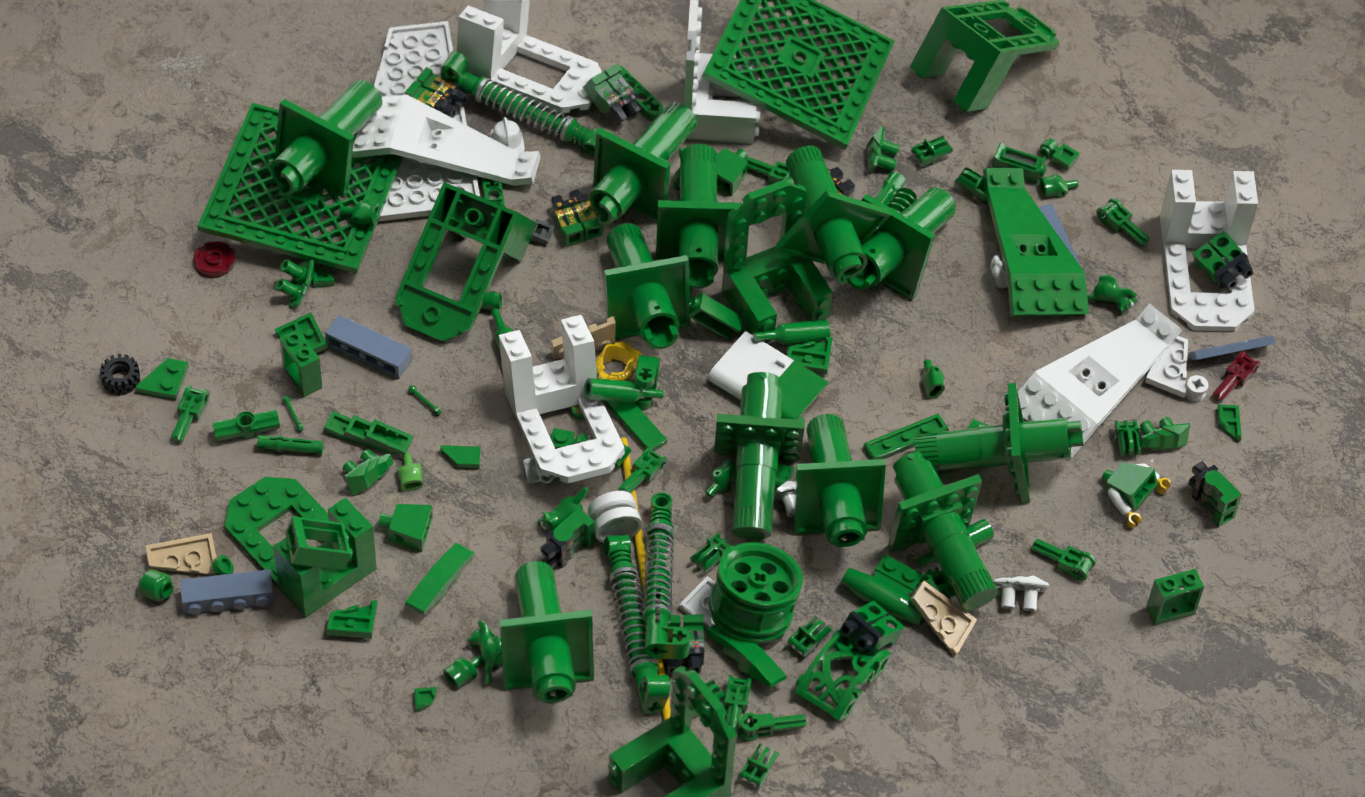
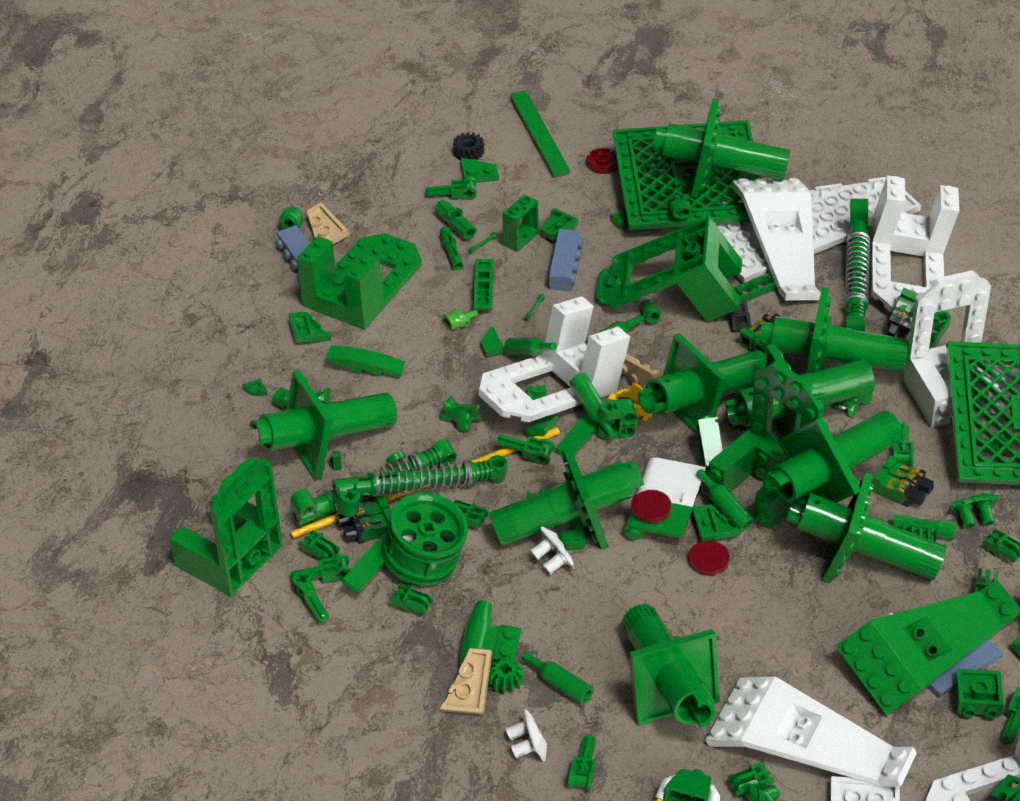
camera: 75 degrees right, 10 degrees down
(130, 300) = (540, 134): none -> green tile
(301, 277) = (610, 204): green connector -> none
(320, 530) = (322, 237): green window -> none
(367, 473) = (444, 292): green connector -> none
(408, 524) = (408, 331): green torso -> none
(437, 92) = (830, 221): hips -> none
(506, 418) = (527, 346): none -> green piece
(508, 134) = (828, 275): white piece -> none
(568, 538) = (431, 417): hips -> none
(604, 592) = (395, 456): none -> green tile
(615, 515) = (467, 437): white wheel -> none
(731, 170) = (880, 402): green torso -> none
(758, 767) = (264, 600): green arm -> none
(792, 389) = (651, 506): none -> dark red tile
(834, 491) = (552, 564): green piece -> none
(843, 698) = (360, 634): green fence -> none
(850, 375) = (709, 558): none -> dark red tile
(871, 630) = (431, 632): hips -> none
(903, 438) = (674, 622): green tile -> none
(932, 380) = (734, 613): green piece -> none
(940, 519) = (558, 637): green piece -> none
(1094, 237) = (979, 693): none -> green plate
(1108, 291) = (921, 723): green animal -> none

